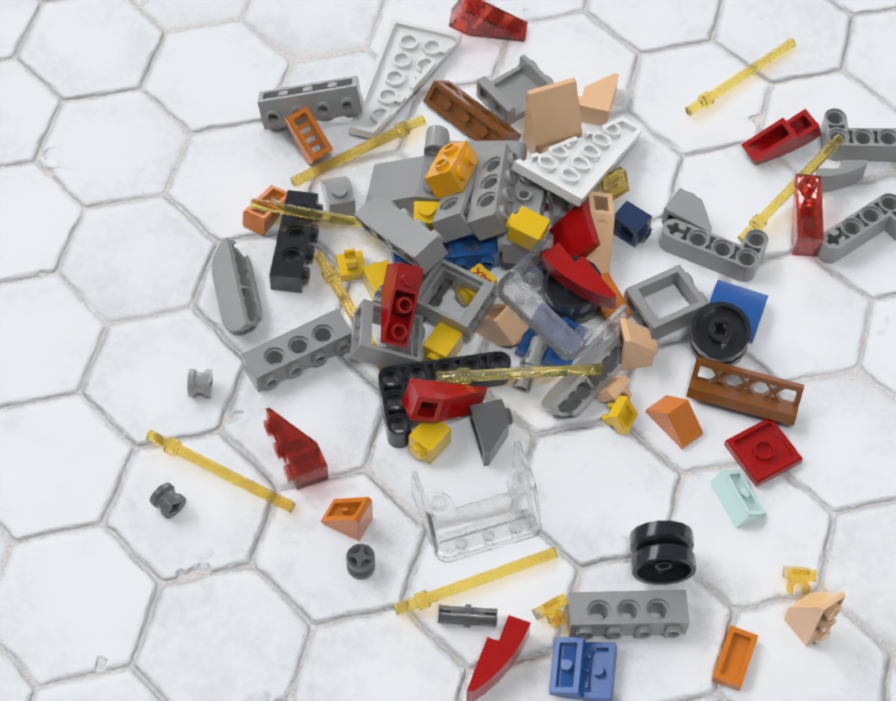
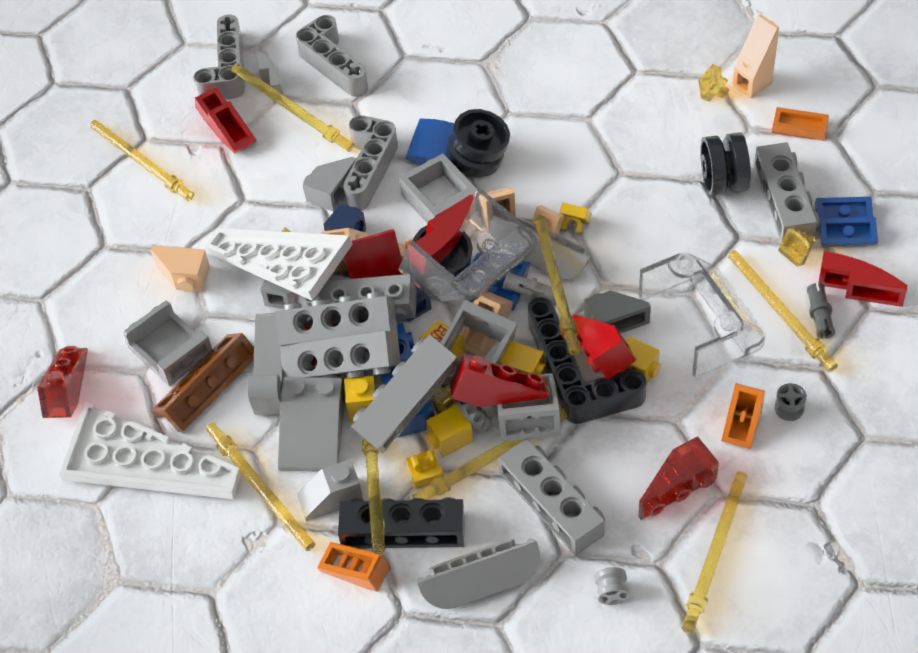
camera: 90 degrees left, 5 degrees down
(167, 500) = (769, 588): dark grey wheel -> none
(305, 148) = (255, 525): orange slope -> none
(323, 98) = (204, 529): light grey brick -> none
(451, 169) = (311, 359): light orange brick -> none
(527, 228) = (399, 270): yellow brick -> none
(551, 115) = (227, 292): light nougat slope -> none
(676, 419) = (566, 179): orange slope -> none
(737, 497) = (641, 132): light aqua slope -> none
(743, 399) = (536, 129): dark orange fence -> none
(763, 452) = (588, 118): red tile -> none
(807, 216) = (326, 93): clear red slope -> none

